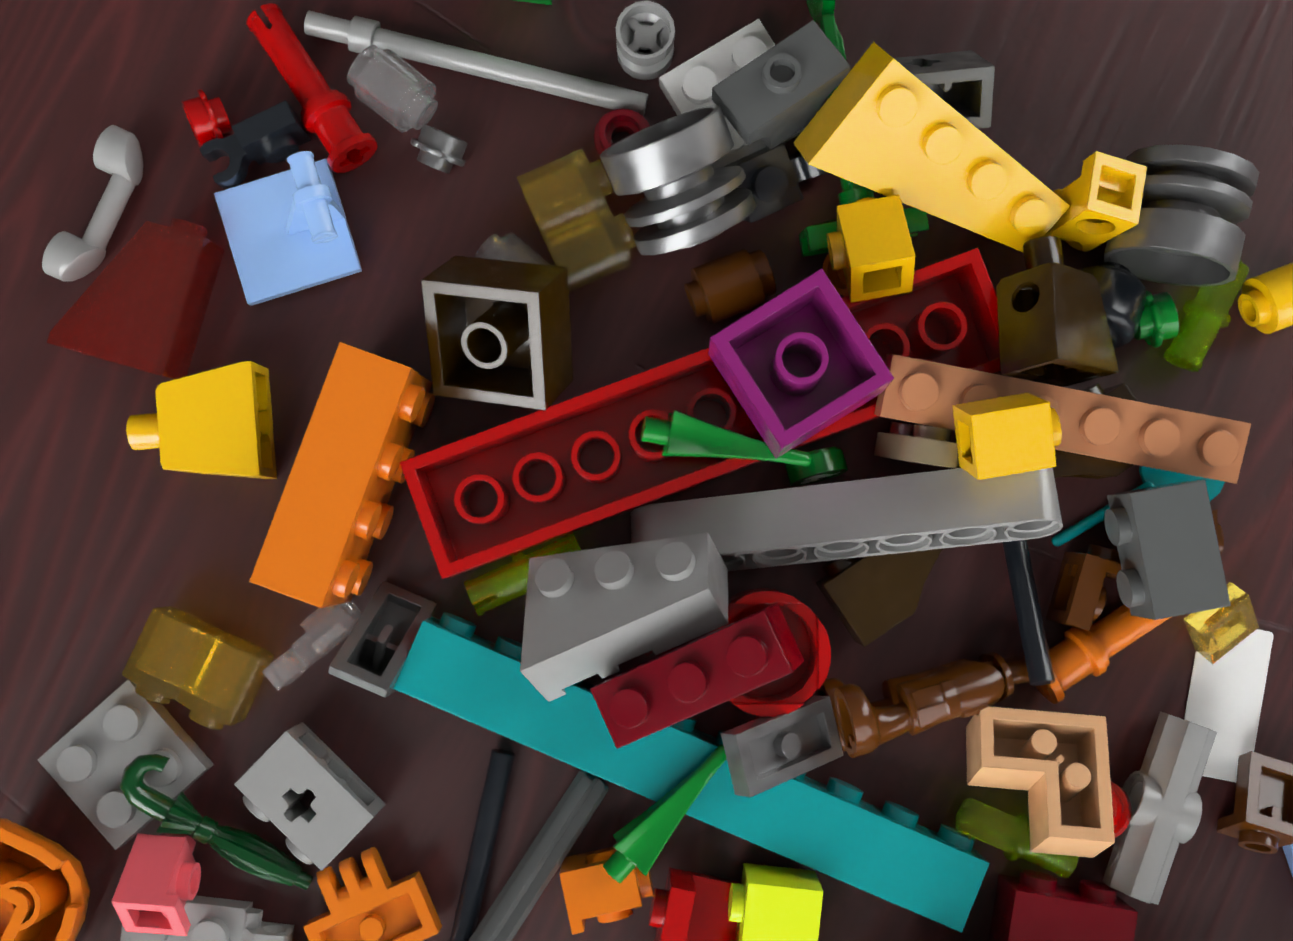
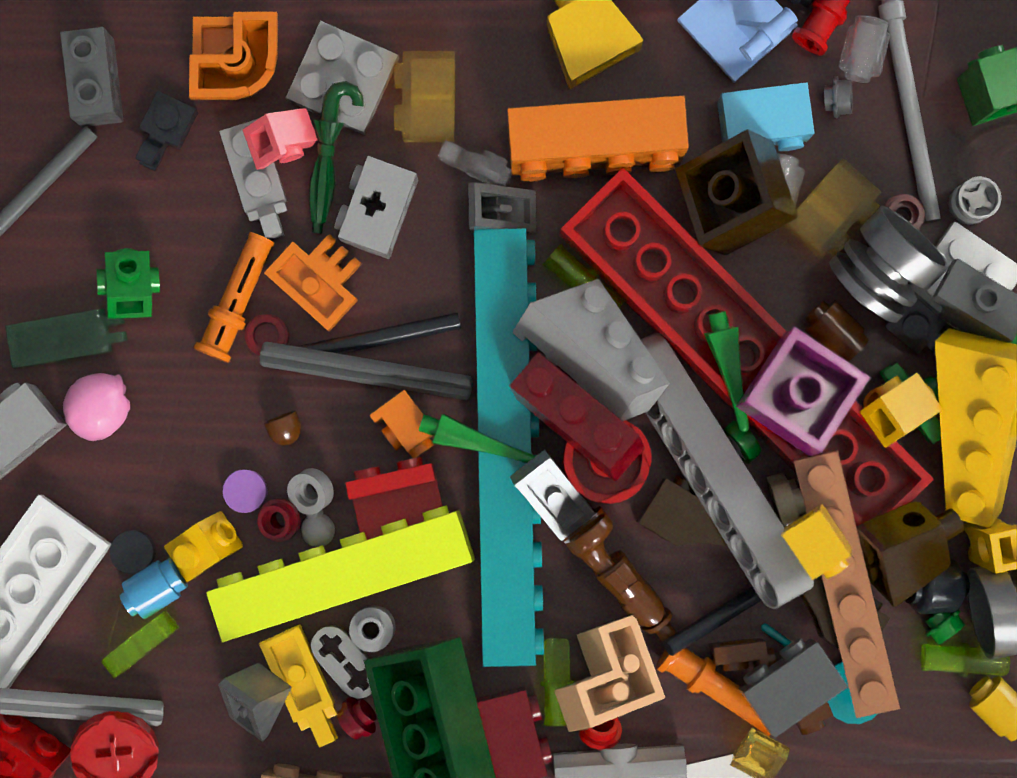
camera: 65 degrees right, 0 degrees up
(419, 236) = (773, 112): none -> medium azure brick

